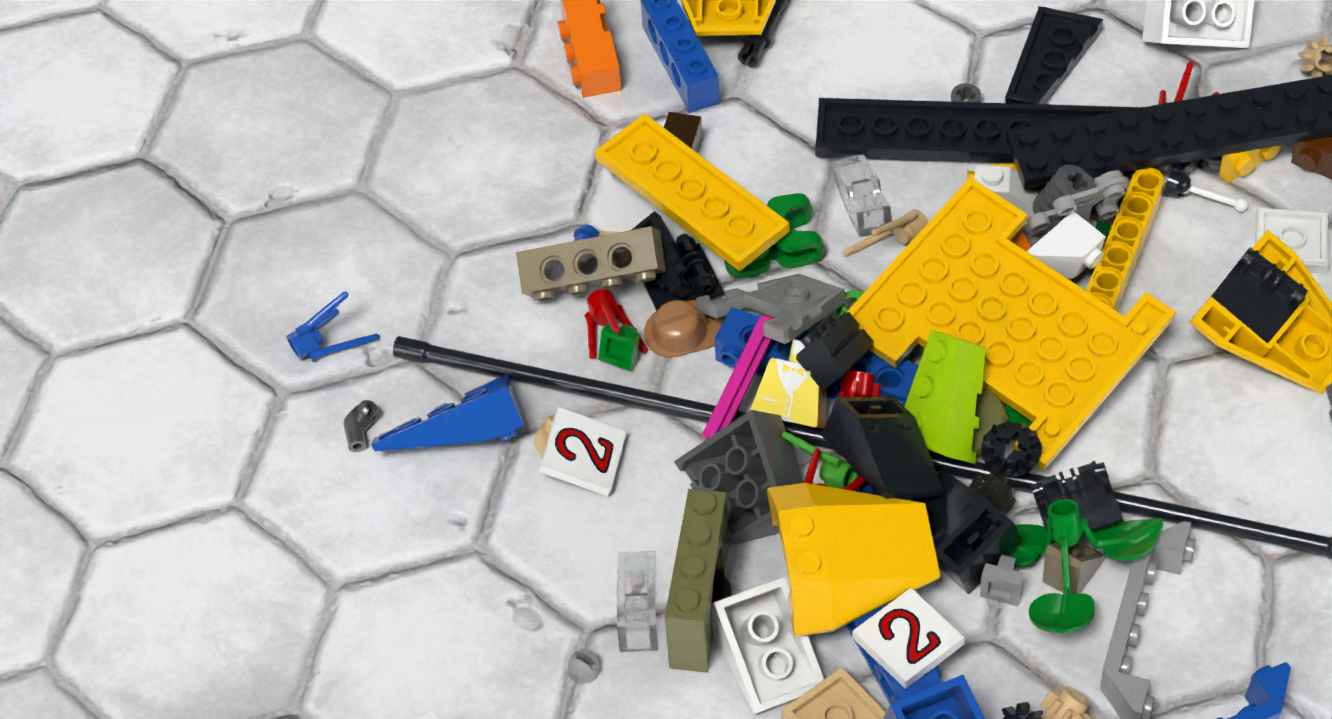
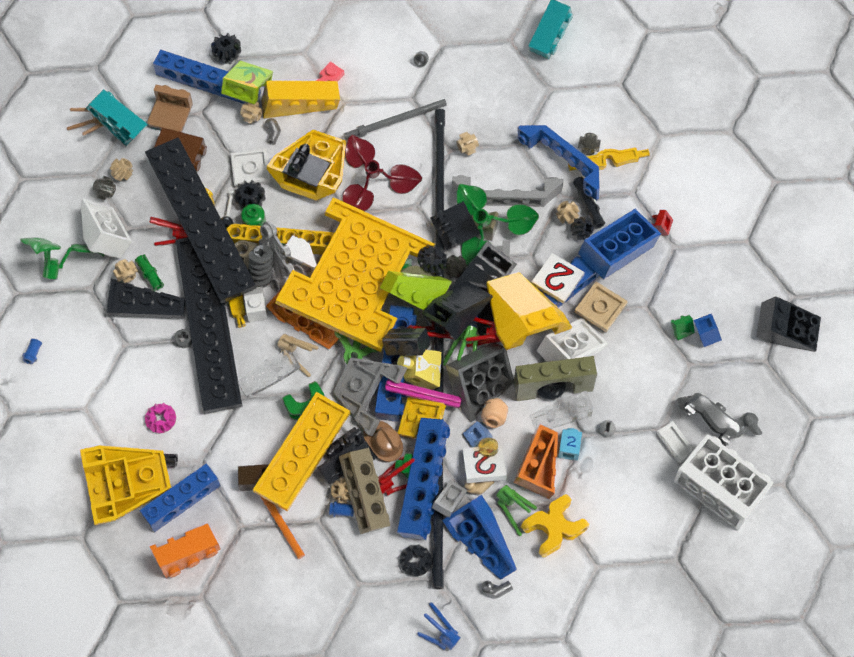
camera: 110 degrees left, 15 degrees up
(429, 530) = (555, 525): none -> yellow piece
(468, 335) = (410, 567): none -> black gear
(509, 474) = (507, 497): none -> bright green plant
(536, 382) = (449, 498): none -> light grey plate
(548, 527) = (538, 465): none -> orange wedge
(566, 177) = (284, 528): none -> orange bar
(570, 590) = (570, 444): none -> medium azure brick
(587, 353) = (428, 429): none -> blue brick
(610, 462) = (488, 447): none -> clear yellow tile
(646, 465) = (476, 433): none -> medium blue slope
(670, 486) = (494, 413): none -> light nougat head
(704, 375) = (414, 411): none -> yellow plate
(828, 62) = (160, 426): none -> dark pink gear
(1103, 71) = (149, 272): none -> green pin
(1112, 38) = (125, 271): none -> tan gear
(1175, 215) = (253, 215): none -> green head
(1220, 464) = (363, 152): none -> dark red plant
(1227, 222) = (254, 189): none -> black gear
(1271, 576) = (467, 143): none -> tan gear
(1286, 31) = (104, 188): none -> clear smoke gear

